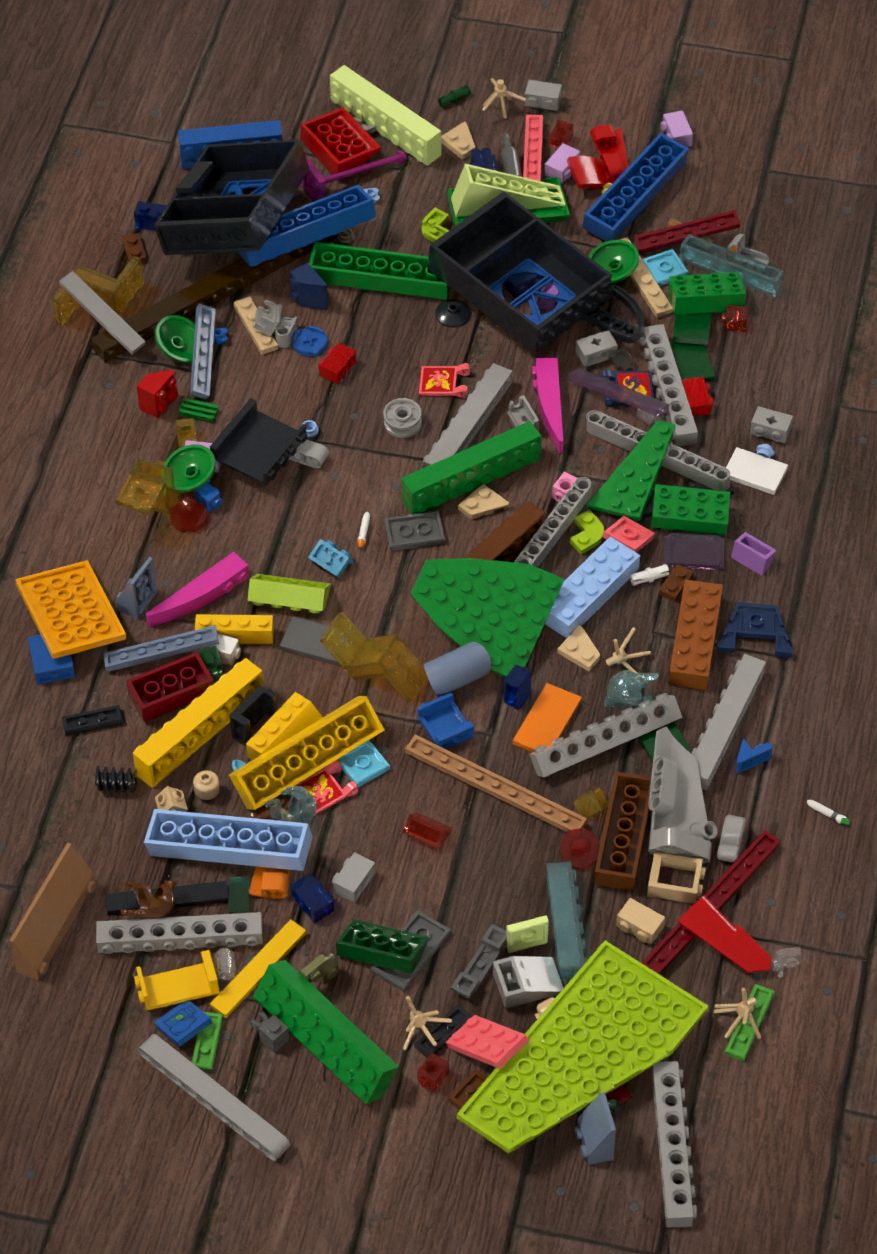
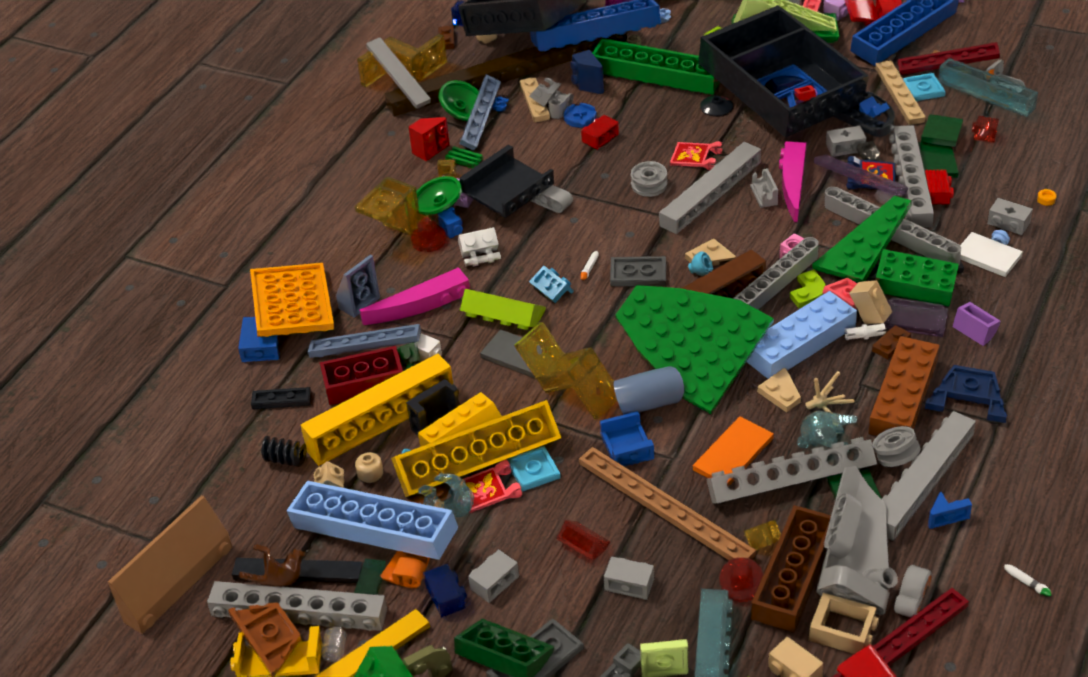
camera: 15 degrees right, 10 degrees down
(163, 963) = (268, 633): none -> dark orange wing
(245, 518) = (477, 243): none -> white brick
(245, 628) = (450, 333): yellow brick -> none
(311, 428) = (560, 180): light blue plate -> none
(471, 468) = (703, 221): green brick -> none
(477, 517) = (701, 264): none -> medium azure brick
(478, 861) = (629, 577): none -> light grey brick
(517, 687) = (706, 414): clear blue brick -> none
(551, 307) = (805, 93): none -> red plate
(616, 257) = (881, 73): green dish -> none
(619, 308) = (873, 109): none -> blue slope
(651, 544) = (870, 302): none -> tan brick
(697, 697) = (896, 446): none -> light grey wheel
(705, 292) = (958, 104): green brick -> none
(804, 395) = (1046, 197): none -> light orange tile

